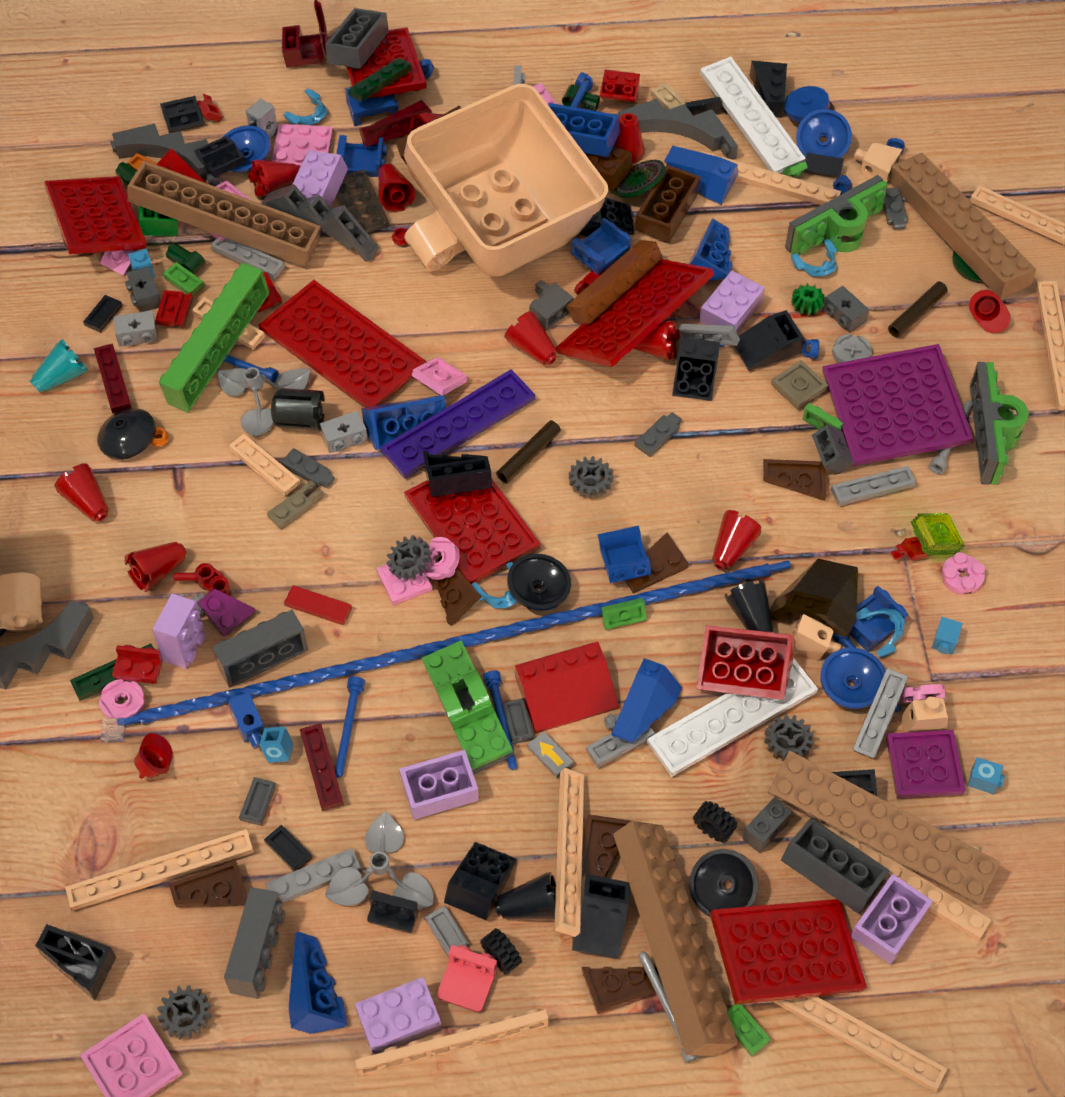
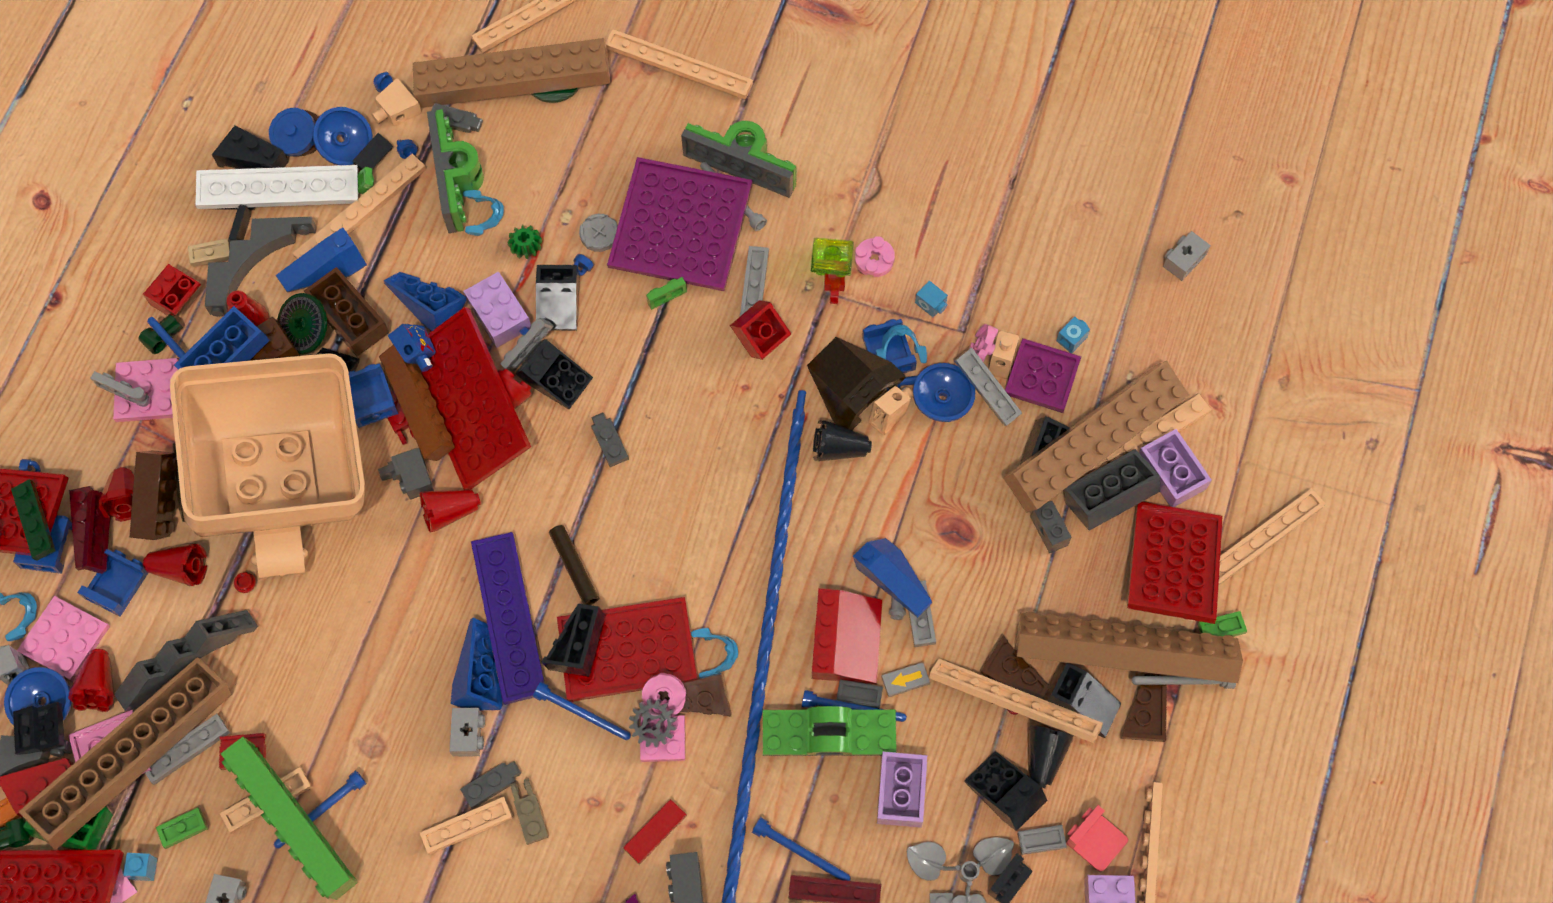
camera: 65 degrees left, 10 degrees up
(144, 289) = (163, 869): dark grey brick -> none
(173, 309) = (216, 851): red plate -> none
(190, 261) = (160, 813): dark green piece -> none
(236, 380) = (344, 816): light grey plant -> none
(297, 409) = (420, 766): pearl dark grey cylinder -> none
(321, 175) = (128, 635): lavender brick -> none
(342, 345) = (354, 694): red plate -> none
(366, 194) = (167, 595): clear smoke plate -> none
(400, 470) = (543, 692): none -> blue piece
(439, 376) = (445, 612): bright pink plate -> none
(502, 950) = (1085, 797): black tyre -> none
(542, 573) = (732, 603): black dish -> none
(584, 77) = (137, 322): blue tile -> none
(590, 477) = (640, 518): dark grey gear -> none
(623, 613) = (792, 554): bright green plate -> none
(624, 554) = (733, 527): blue panel -> none
(660, 252) = (413, 345): none -> blue torso
(664, 562) = (750, 505): reddish brown wing -> none
(709, 880) = (1106, 589): black dish -> none
(715, 821) = (1033, 567): black tyre -> none
(723, 723) = (933, 509): white plate -> none
(734, 539) = (760, 426): red cone -> none
(745, 662) = (893, 473): red slope -> none
(791, 735) = (984, 474): dark grey gear -> none
(797, 475) = (712, 343): reddish brown wing -> none
(799, 384) = (616, 293): dark tan plate -> none
(826, 501) = (760, 329): none -> red brick
(832, 449) = (703, 298): dark grey brick -> none
(846, 309) = (559, 208): dark grey brick -> none
(917, 309) = (583, 155): dark brown piece -> none
(989, 311) = (619, 98): red piece -> none

